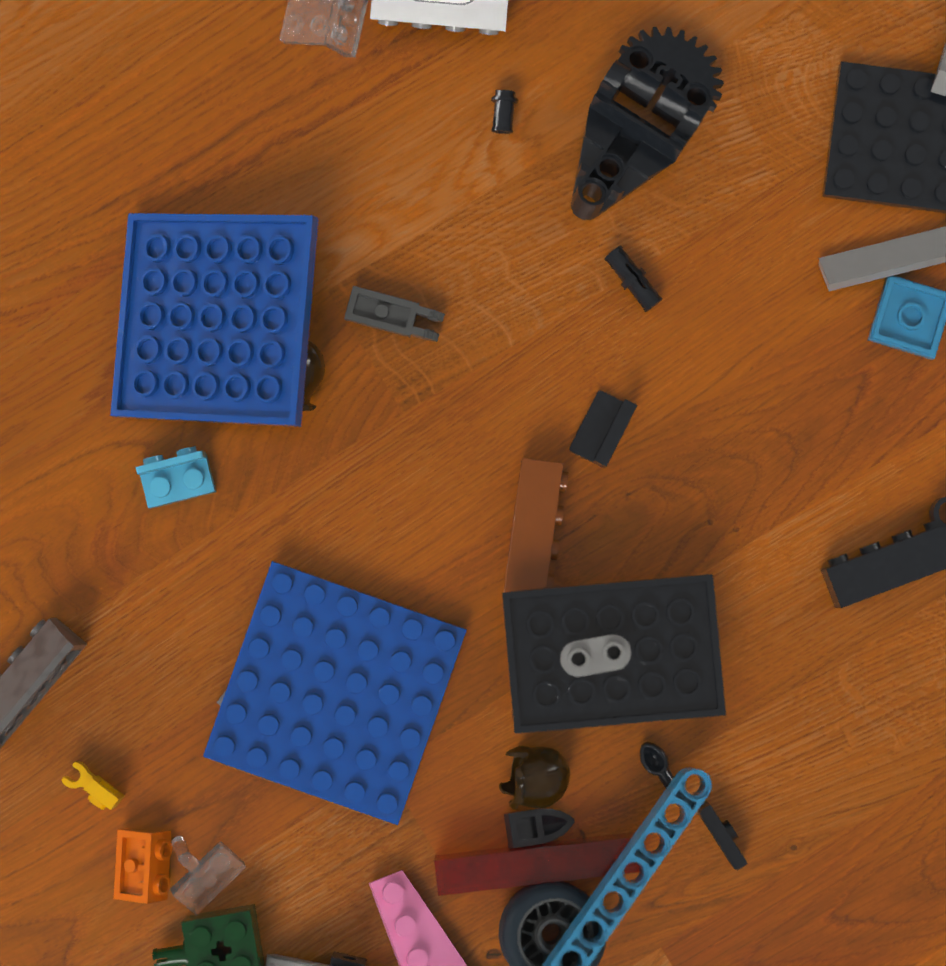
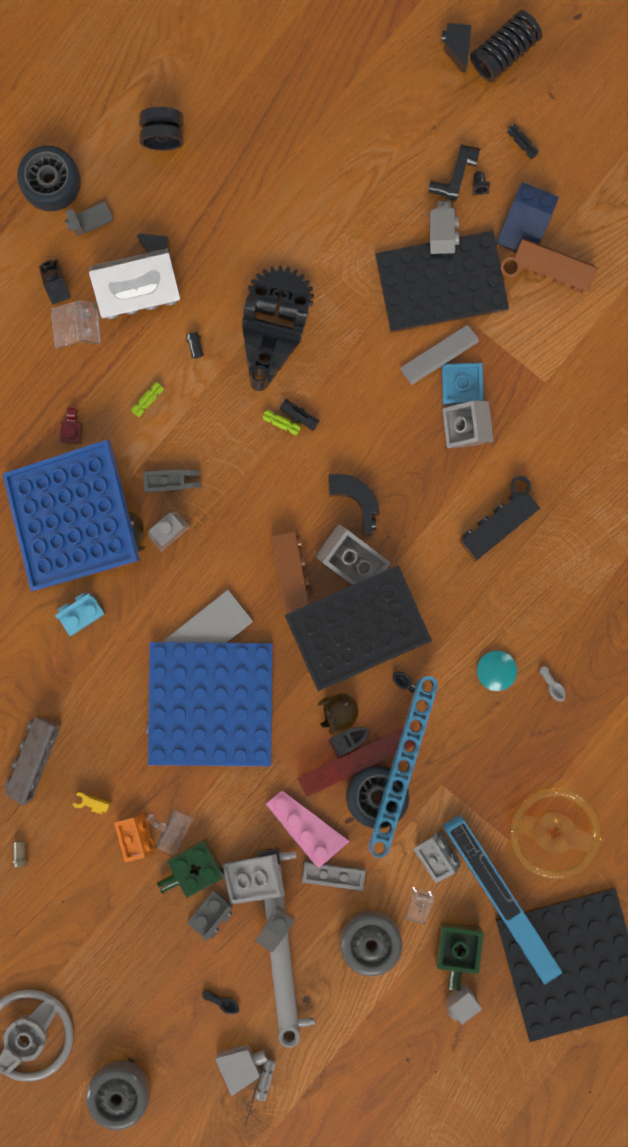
camera: 20 degrees left, 0 degrees up
(261, 181) = (71, 430): none -> dark red plate
(361, 392) = (168, 530): none -> light grey torso
(386, 566) = (215, 623): none -> light grey tile
(398, 172) = (147, 399): none -> lime axle
(595, 655) = (348, 632): light grey plate -> none
(600, 281) = (281, 422): none -> lime axle
(602, 428) = (310, 504): black panel -> none
(639, 534) = (351, 556): none -> light grey slope
(686, 432) = (357, 490): none -> black arch
(723, 835) = (455, 709): black plate -> none
(811, 796) = (496, 670): none -> teal dish
(895, 857) = (555, 689): none -> light grey piece
(898, 385) = (468, 424): none -> light grey slope

